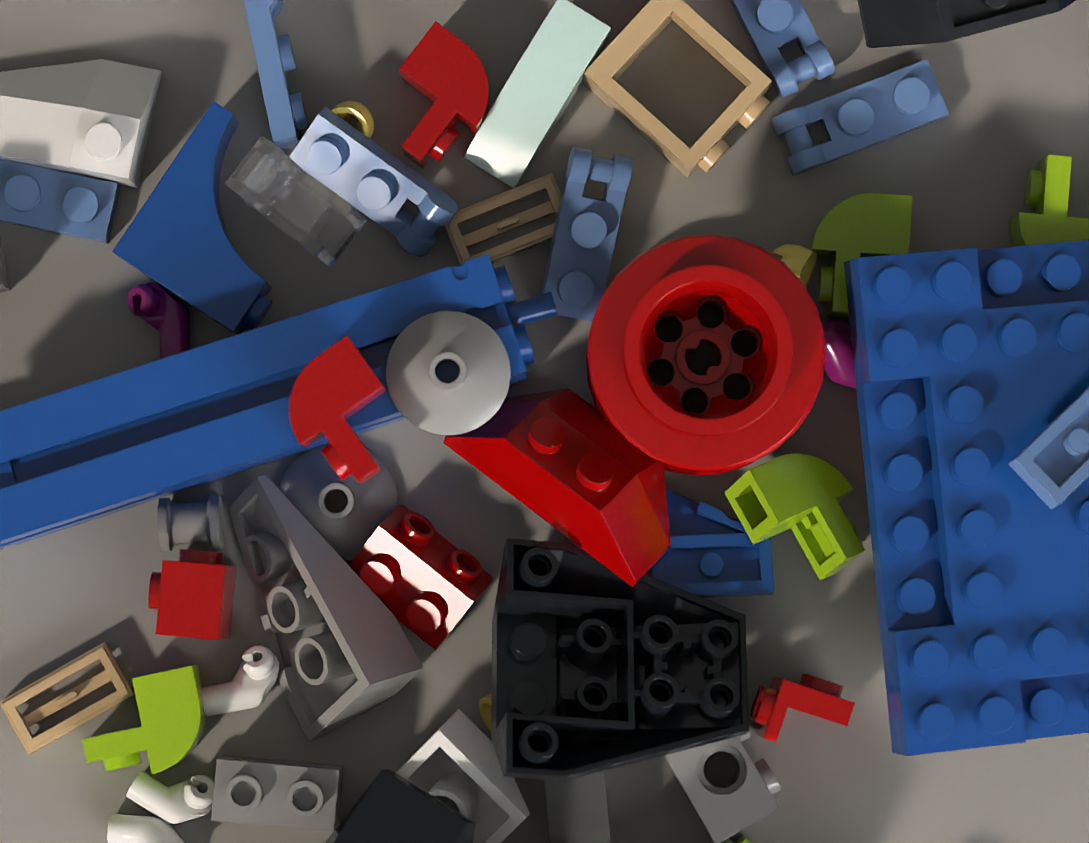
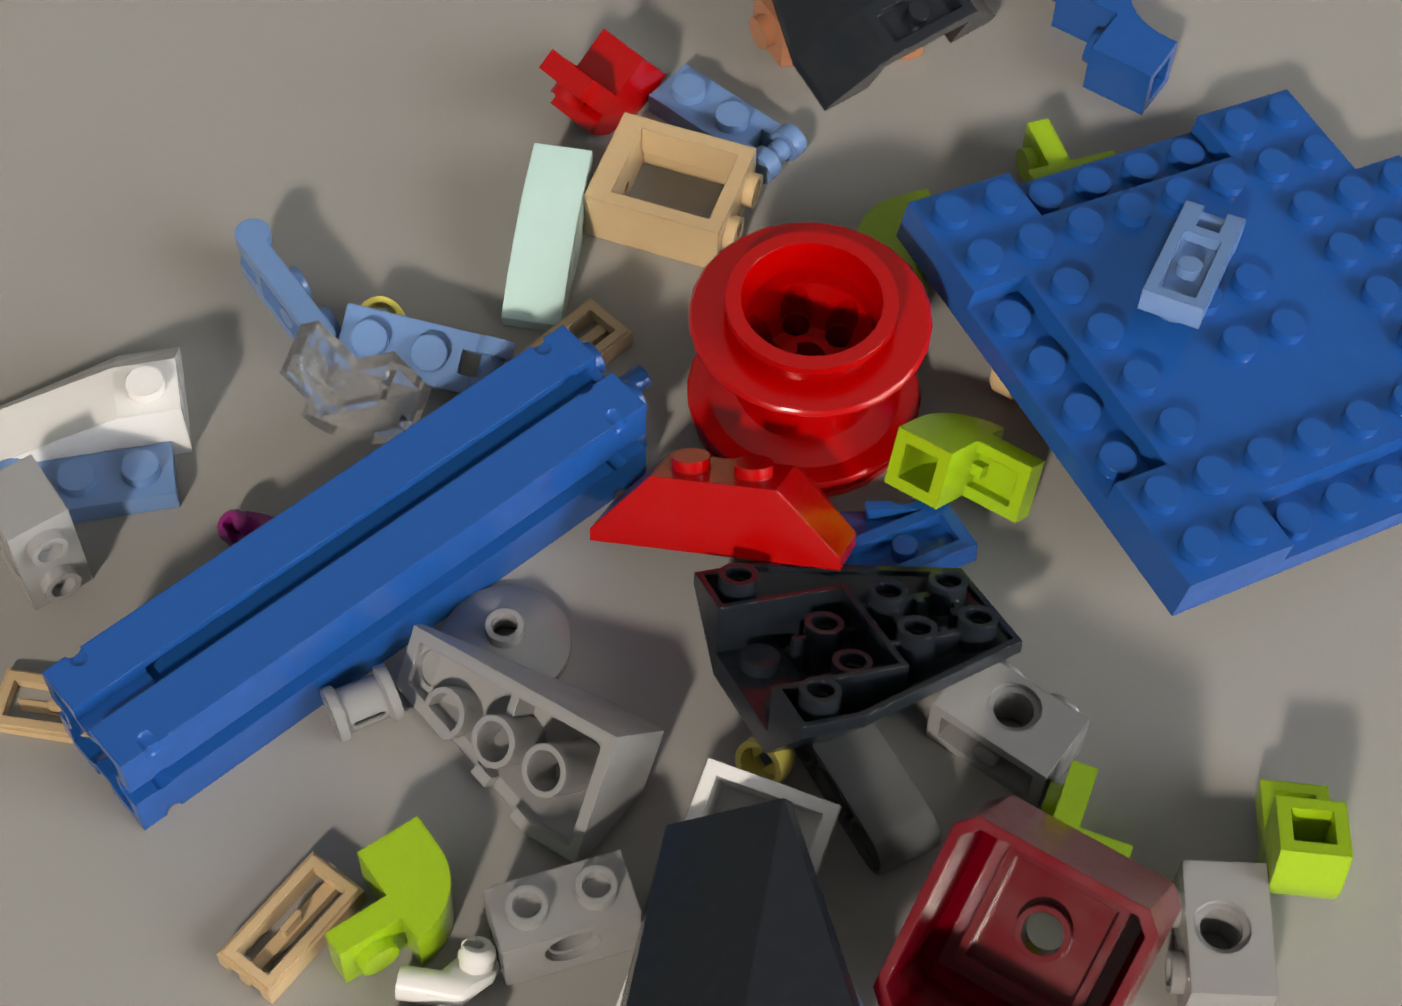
camera: 20 degrees left, 30 degrees down
(183, 236) = (250, 450): blue arch -> none
(193, 596) = (394, 750): red brick -> none
(248, 686) = (486, 835): white arm -> none
(328, 394) = (466, 479): red brick -> none
(420, 575) = (620, 667): red bracket -> none
(448, 406) = (569, 449): light grey dish -> none
(457, 85) = (462, 258): red brick -> none
(585, 233) = (645, 323): medium blue plate -> none
(810, 696) = (1062, 615): red bracket -> none
(839, 353) = (951, 357): magenta arm -> none
(862, 116) = (848, 170): medium blue plate -> none

